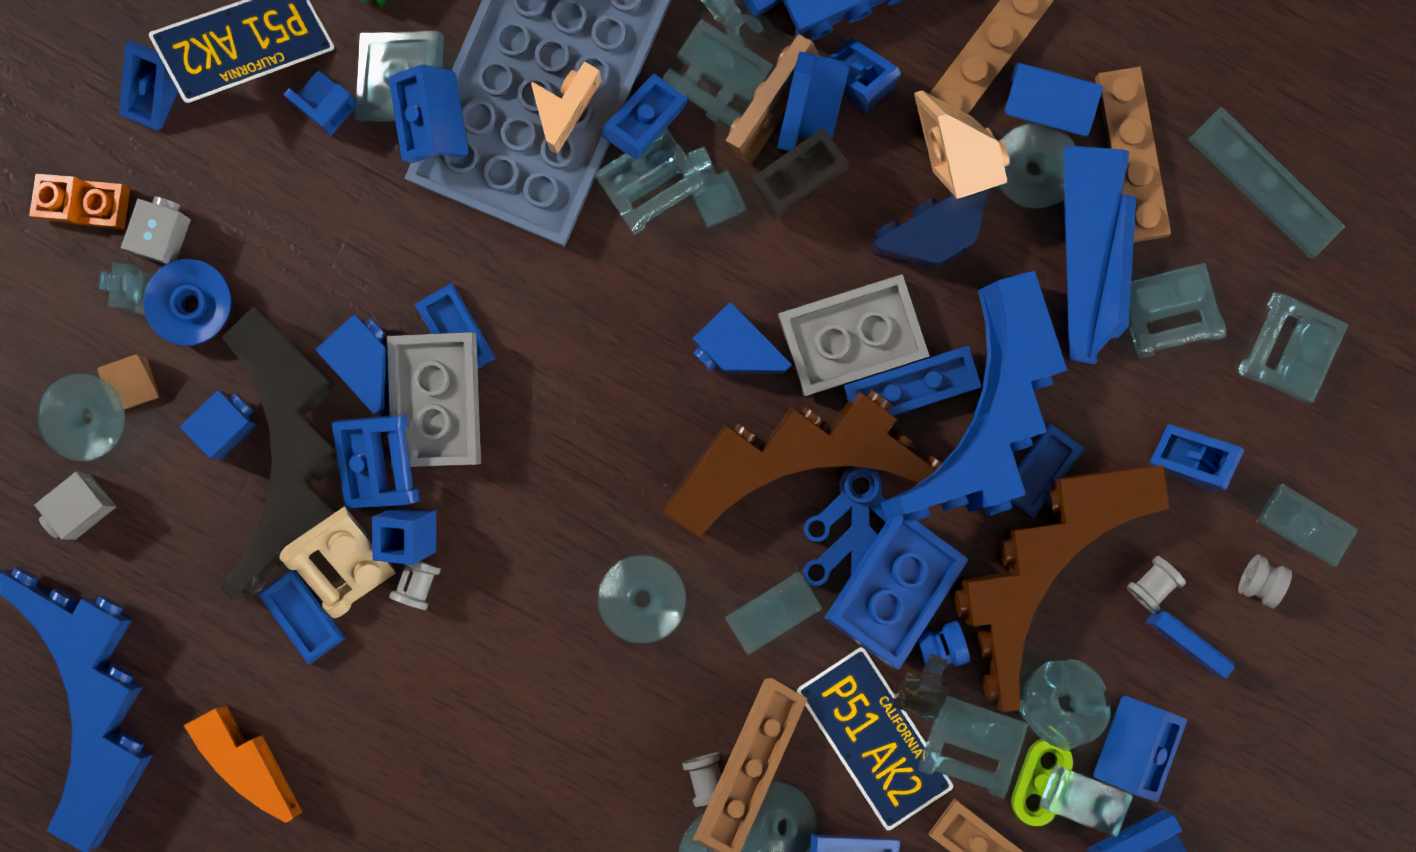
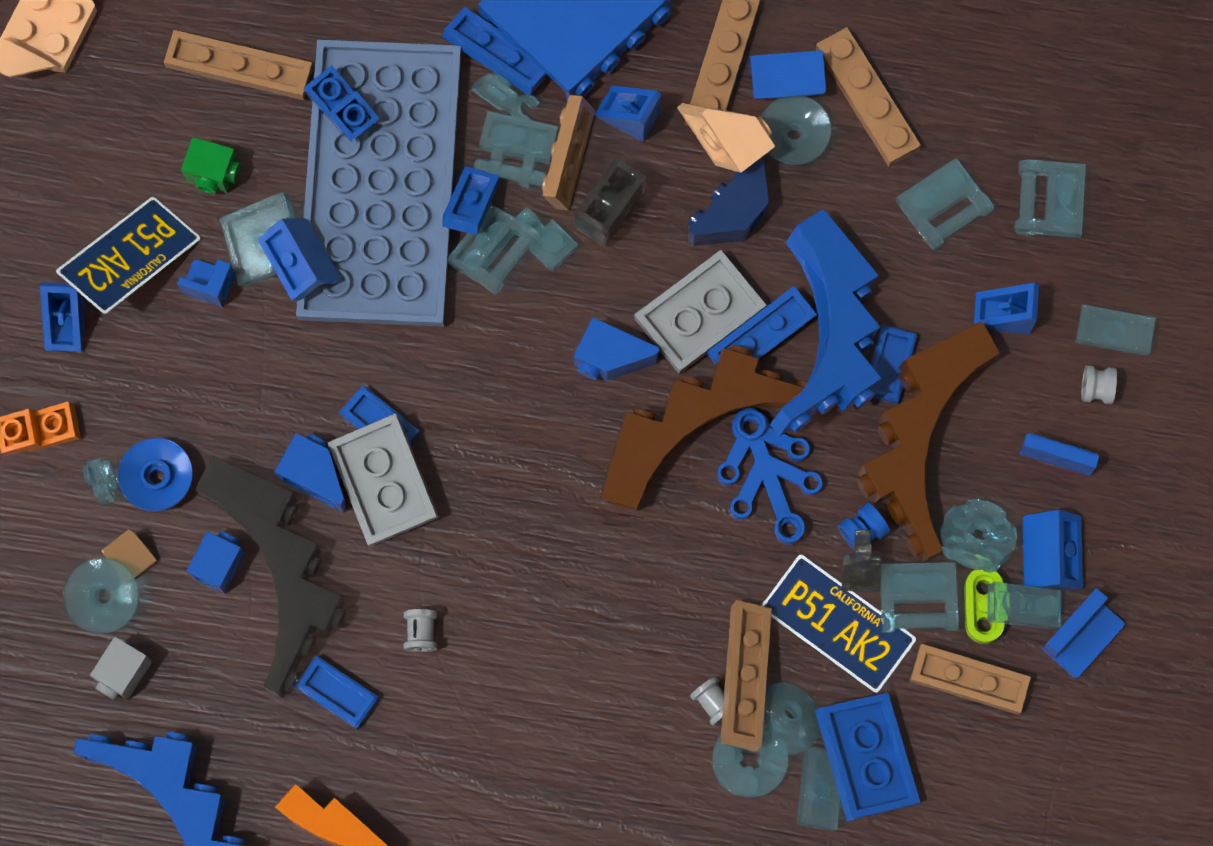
camera: 15 degrees left, 10 degrees down
(156, 230) = (109, 428): light grey brick -> none
(348, 551) = (361, 624): tan plate -> none
(363, 462) = (343, 548): blue plate -> none
(404, 535) = (398, 592): blue brick -> none
(561, 115) = (404, 219): light nougat slope -> none
(618, 603) = (604, 558): clear light blue dish -> none
(773, 612) = (718, 550): clear light blue plate -> none
(813, 98) = (599, 138): blue panel -> none
(896, 590) = (809, 492): blue plate -> none
(1097, 248) = (866, 175): blue wedge -> none
(1156, 584) = (1014, 418): light grey bush -> none
(1266, 183) = (980, 81): clear light blue tile -> none

